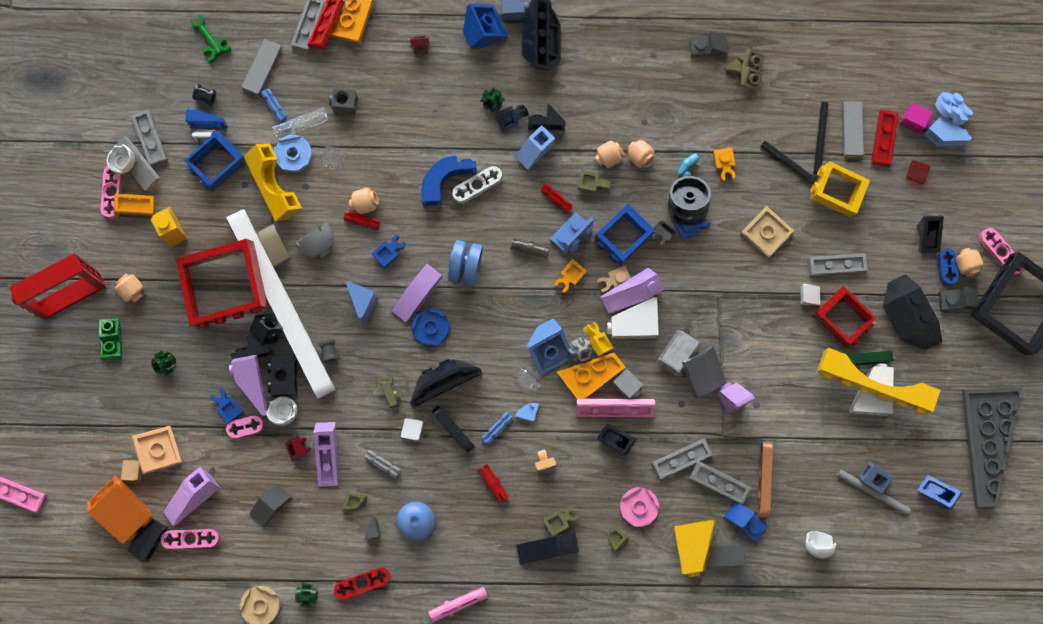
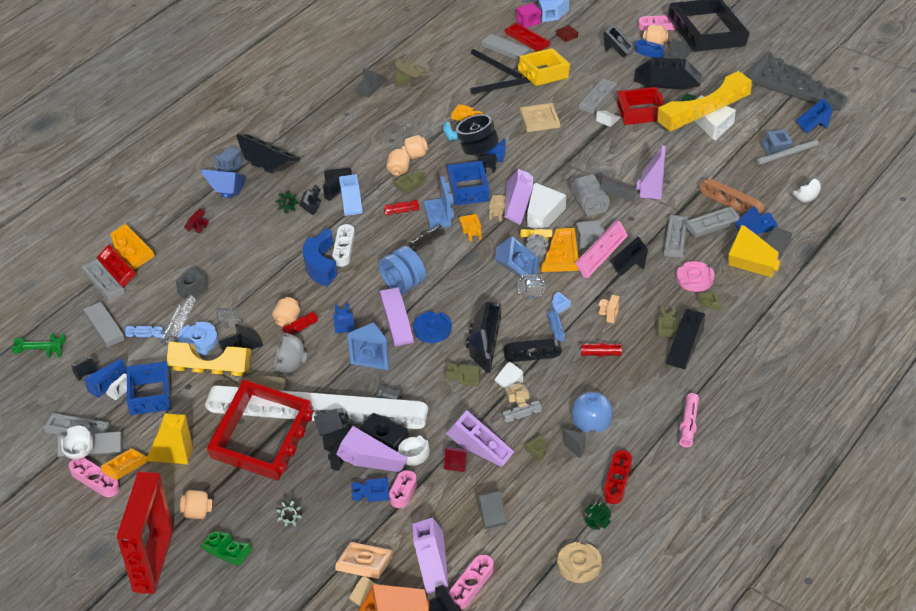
camera: 50 degrees left, 35 degrees down
(312, 189) = (244, 339): none -> black slope
(395, 449) = (517, 393): none -> tan plate

